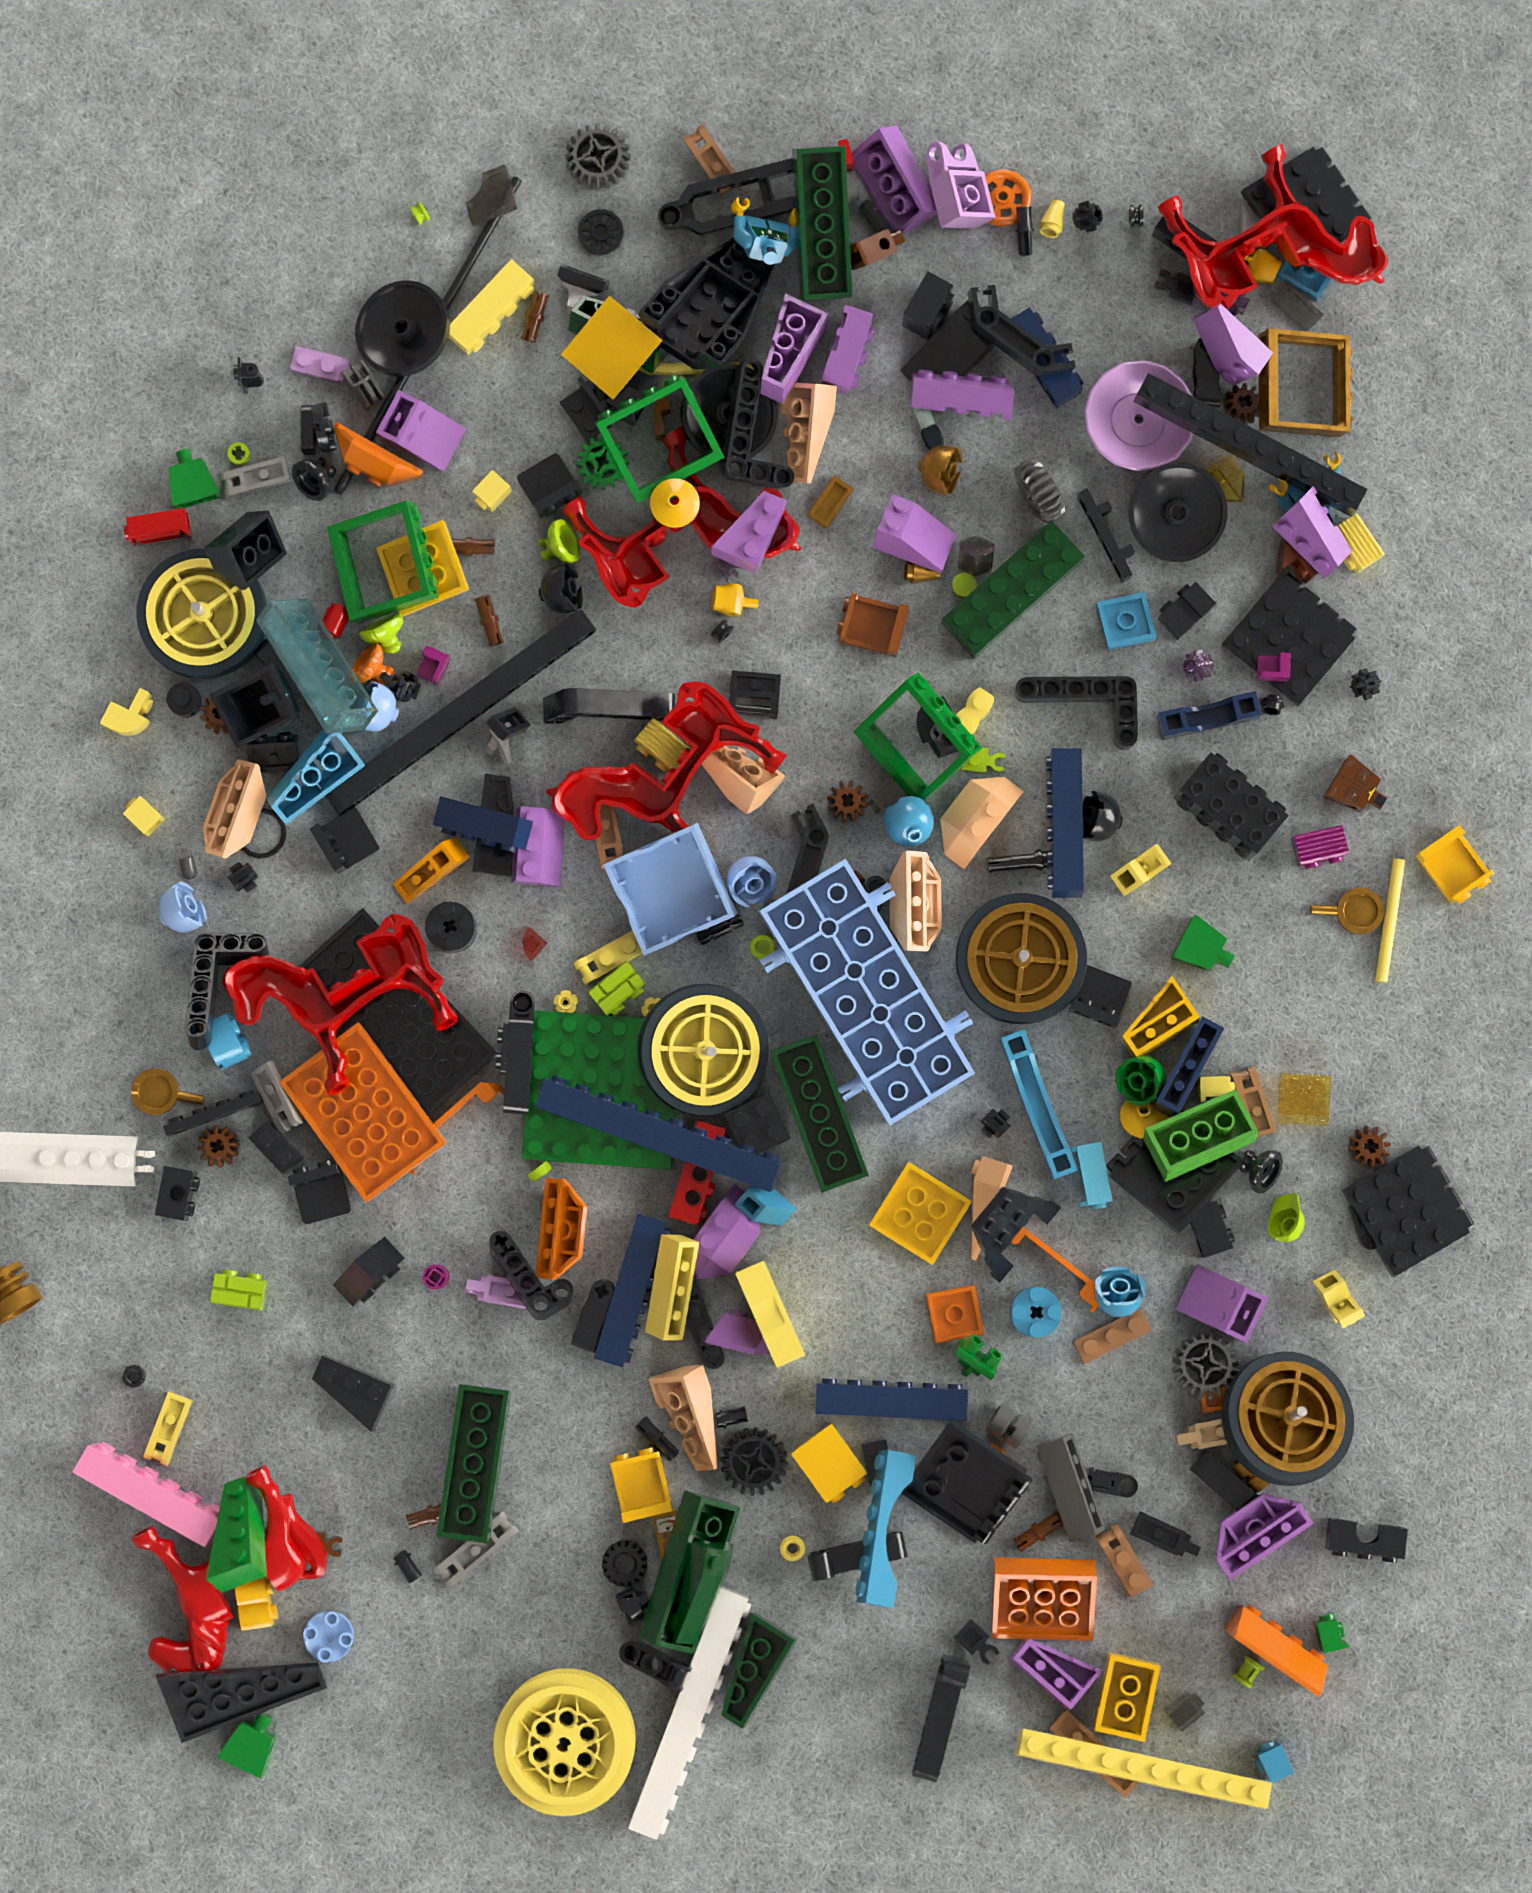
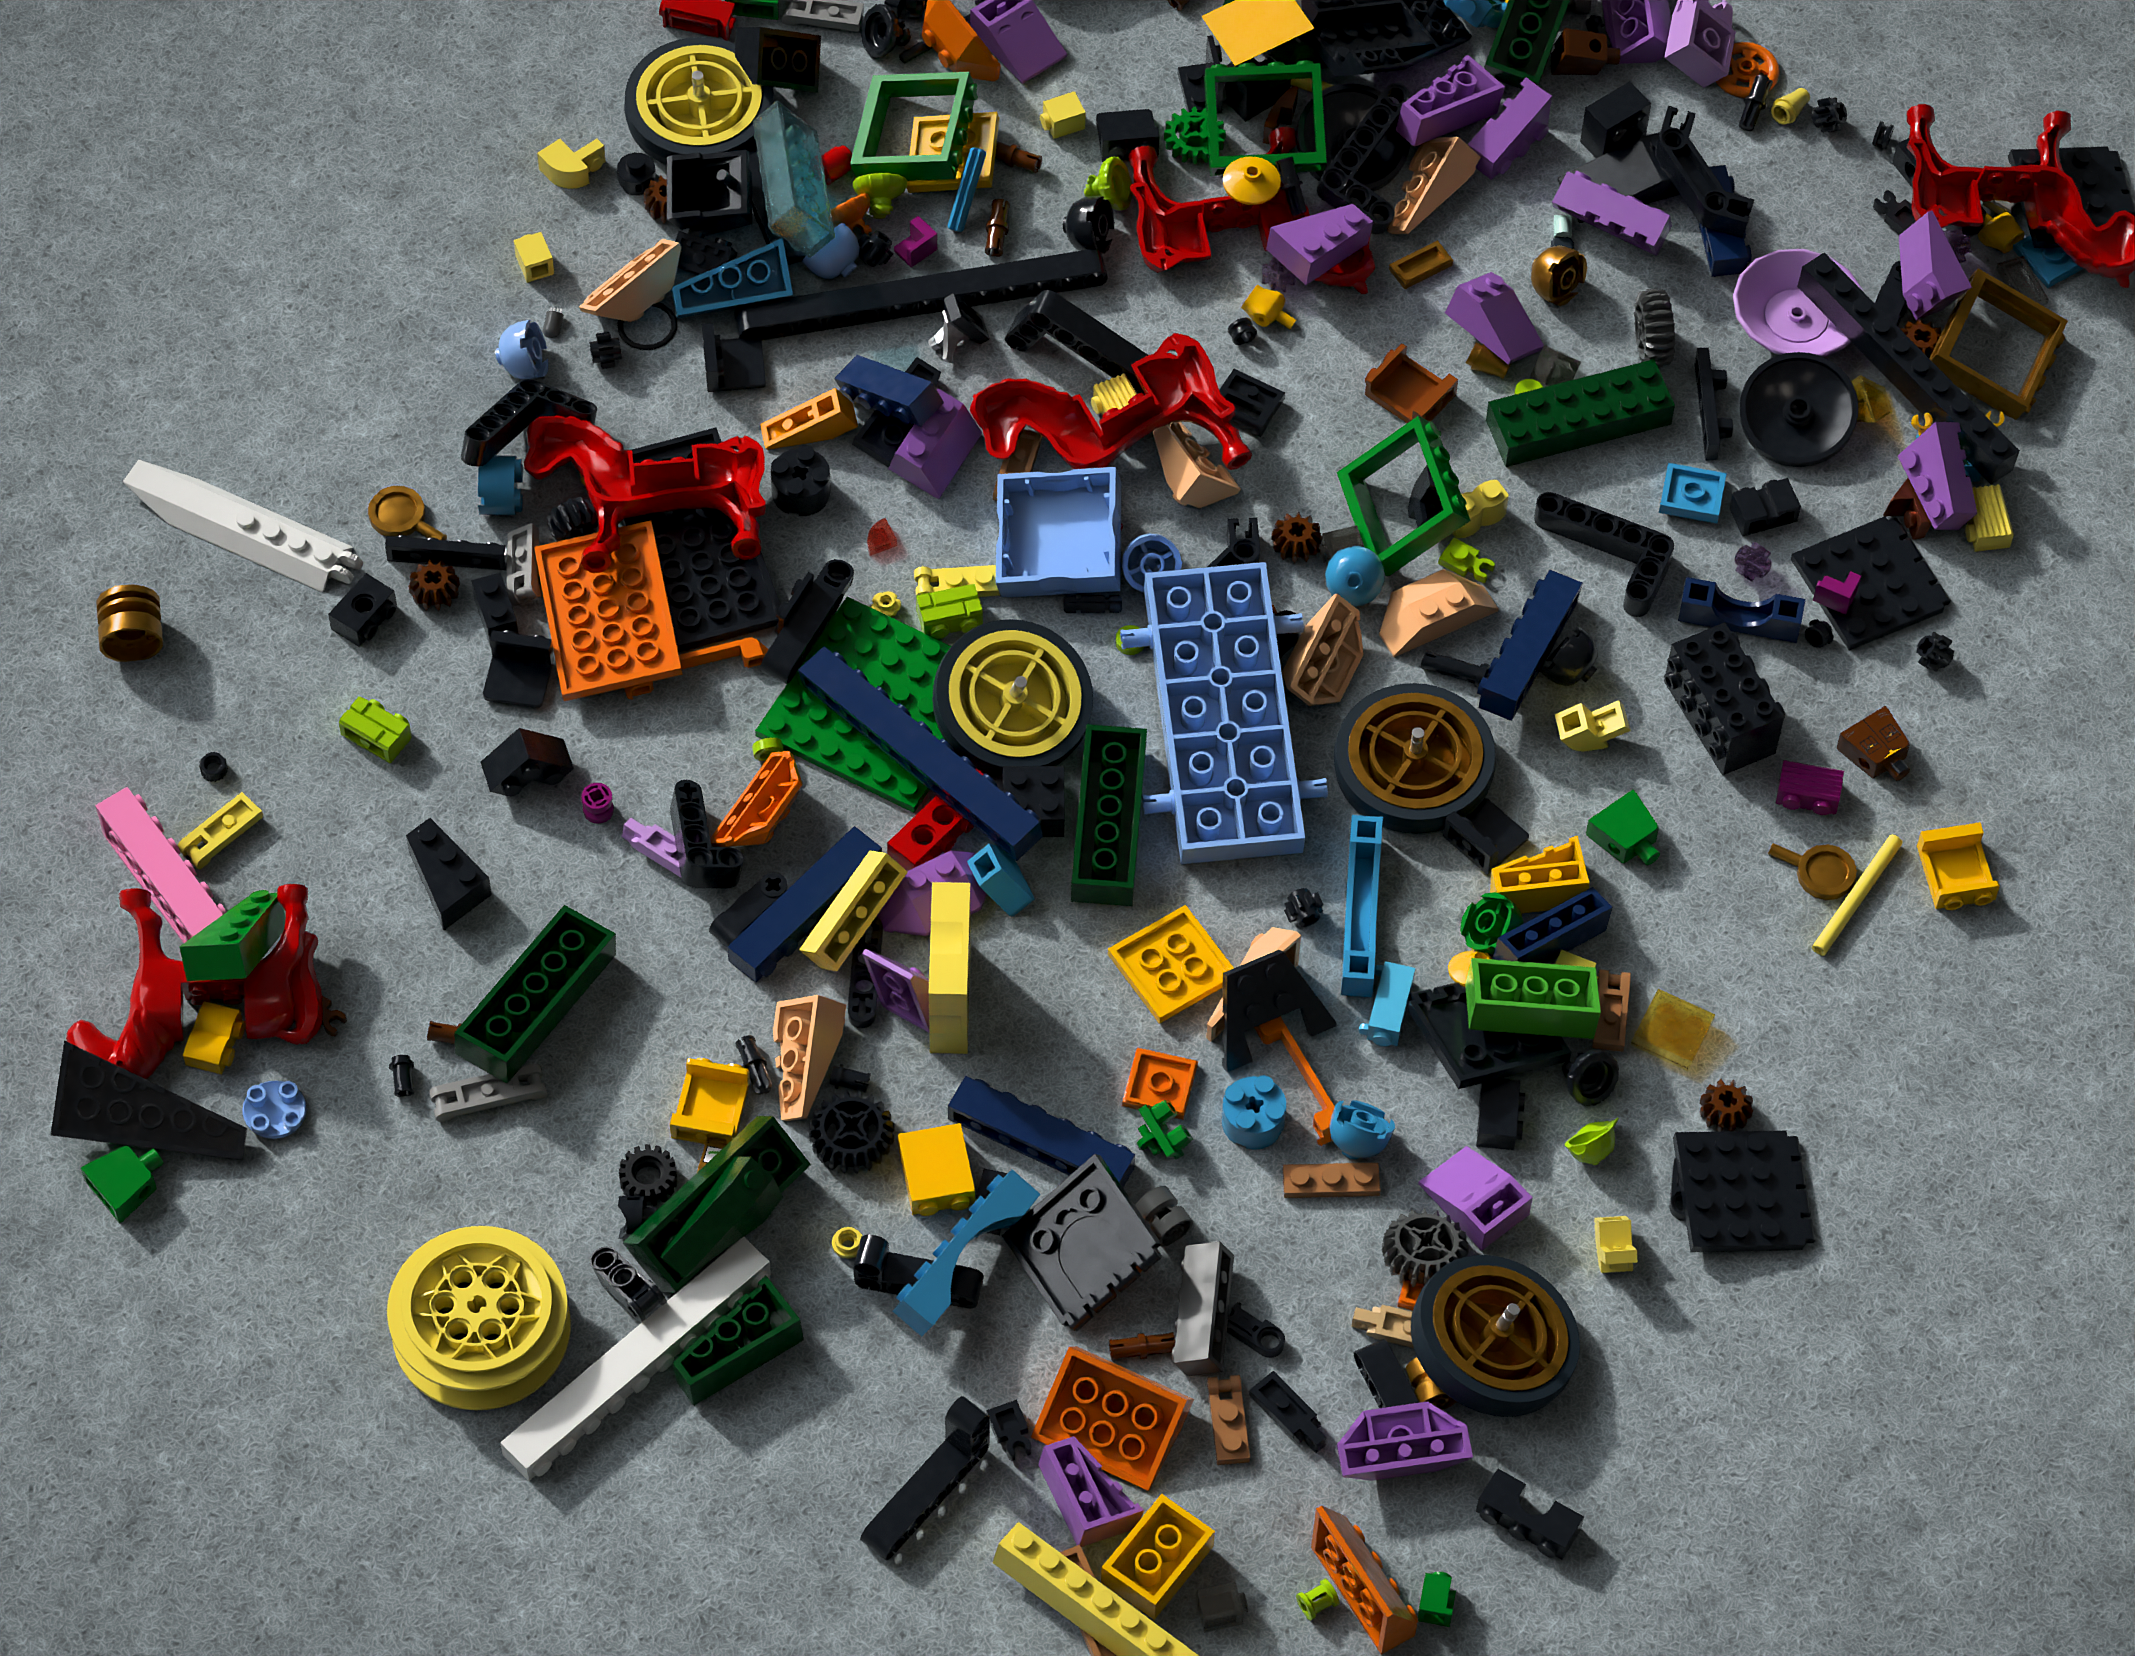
camera: 20 degrees right, 25 degrees down
(295, 1045) = (572, 519): none -> black gear
(452, 603) = (966, 189): none -> dark azure axle
(706, 490) = (1291, 185): none -> black axle

